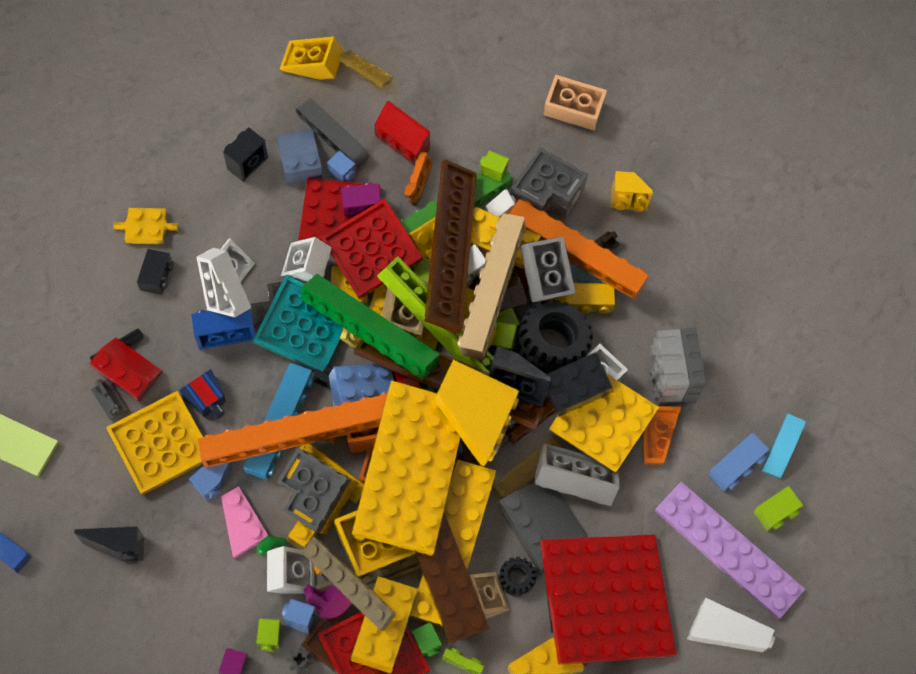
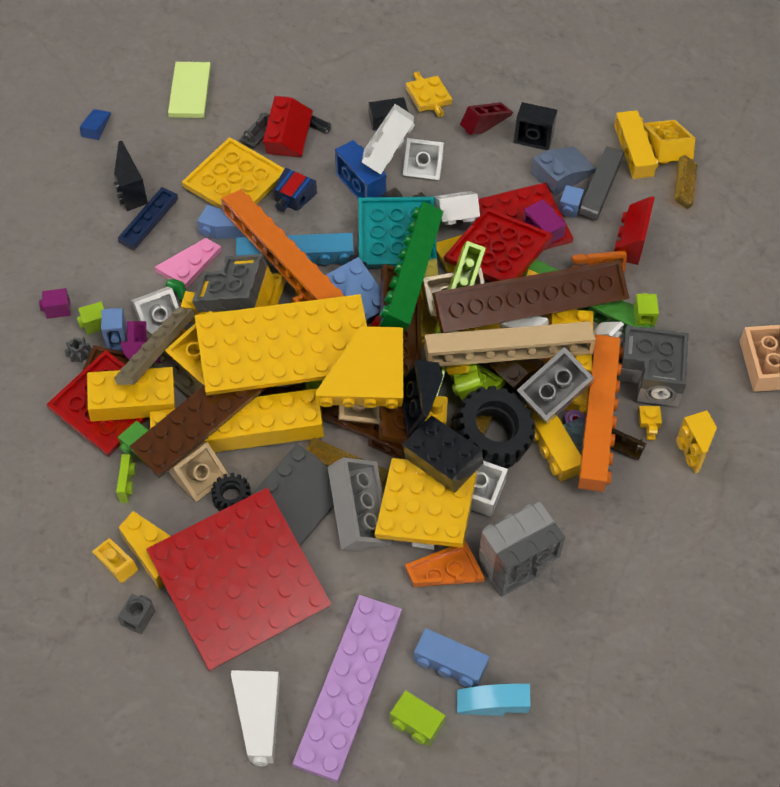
camera: 70 degrees right, 10 degrees down
(168, 542) = (147, 218): none -> dark blue plate
(205, 190) = (484, 117): none -> dark red slope
(303, 85) = (635, 144): none -> yellow brick
(586, 217) = (650, 419): none -> yellow plate

